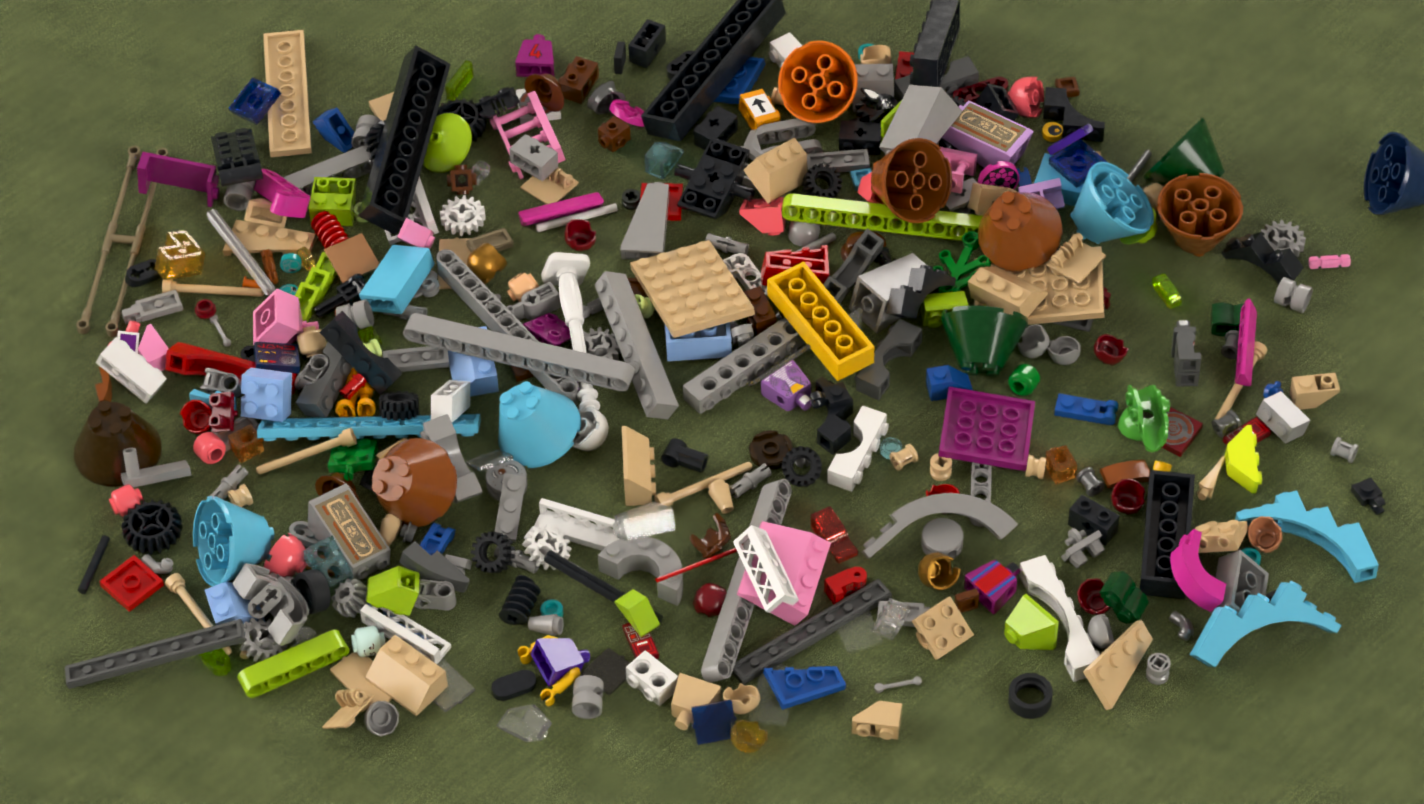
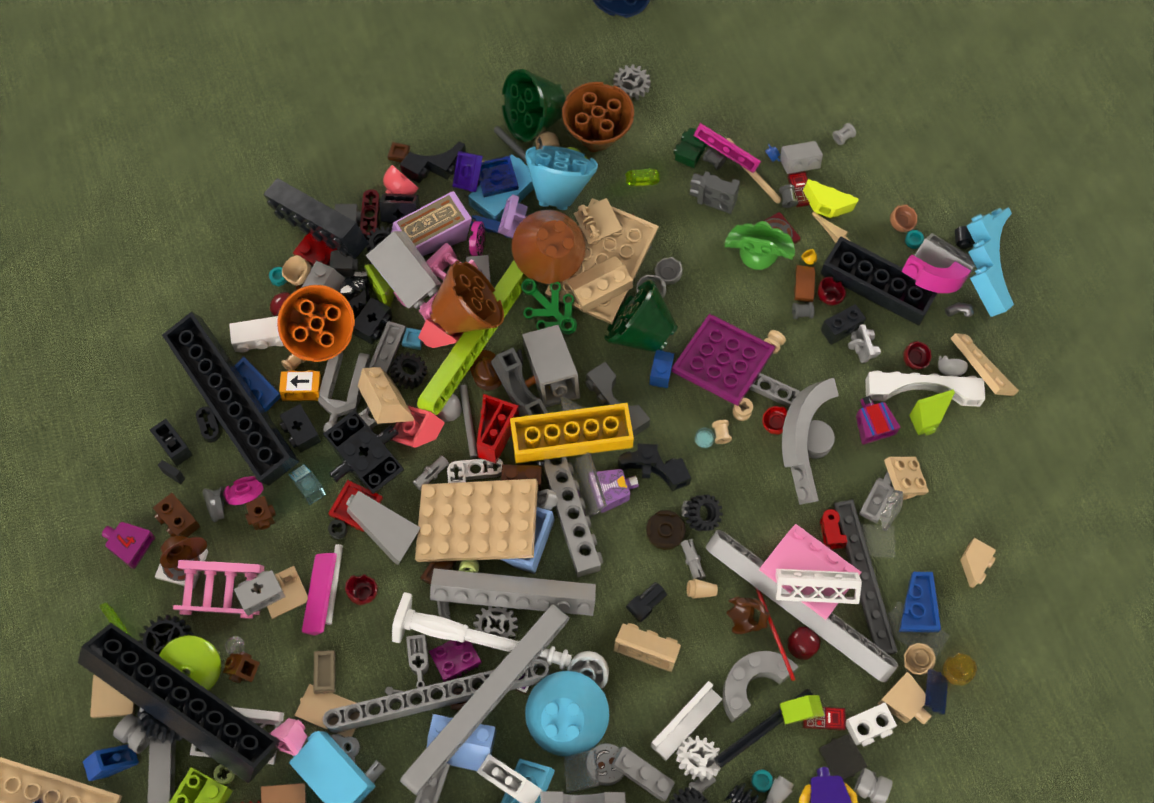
camera: 70 degrees left, 15 degrees up
(462, 215) = (277, 691): white gear -> none
(485, 262) = (352, 686): pearl gold helmet -> none
(505, 97) = (167, 608): black hinge -> none
(520, 285) = (395, 663): light nougat head -> none
(644, 521) = (717, 663): clear slope -> none
(668, 499) = (686, 637): tan piece -> none
(830, 528) = (778, 518): clear red piece -> none
(848, 468) = (683, 445): white arch -> none
(879, 687) = (937, 548): light grey hinge -> none
(908, 299) = (572, 341): black arch -> none
(936, 571) = (852, 455): pearl gold helmet -> none
(937, 302) = (590, 335): lime slope -> none
(967, 600) = (884, 447): reddish brown tile -> none
(983, 195) = (498, 252): tan brick -> none
(1024, 379) = (684, 312): green head -> none
(1035, 681) = (999, 432): black tyre -> none
(1052, 131) = (439, 182): yellow tile -> none
(1060, 464) = (782, 317): clear orange brick -> none
(1086, 409) = (728, 283): blue plate -> none
(1110, 349) = (683, 240): dark red hair -> none
(1124, 597) = (930, 336): dark green brick -> none
(1158, 668) = (996, 343): light grey wheel -> none
(1222, 536) = (899, 245): tan plate -> none
(1258, 251) = (656, 94): black arch -> none
(1294, 295) = (689, 98): light grey wheel -> none
(1313, 390) = (784, 126): tan slope -> none
(1318, 526) = (927, 172): medium azure arch -> none
(1329, 261) = (663, 63): bright pink axle -> none
(1369, 493) = (886, 138): black plate -> none

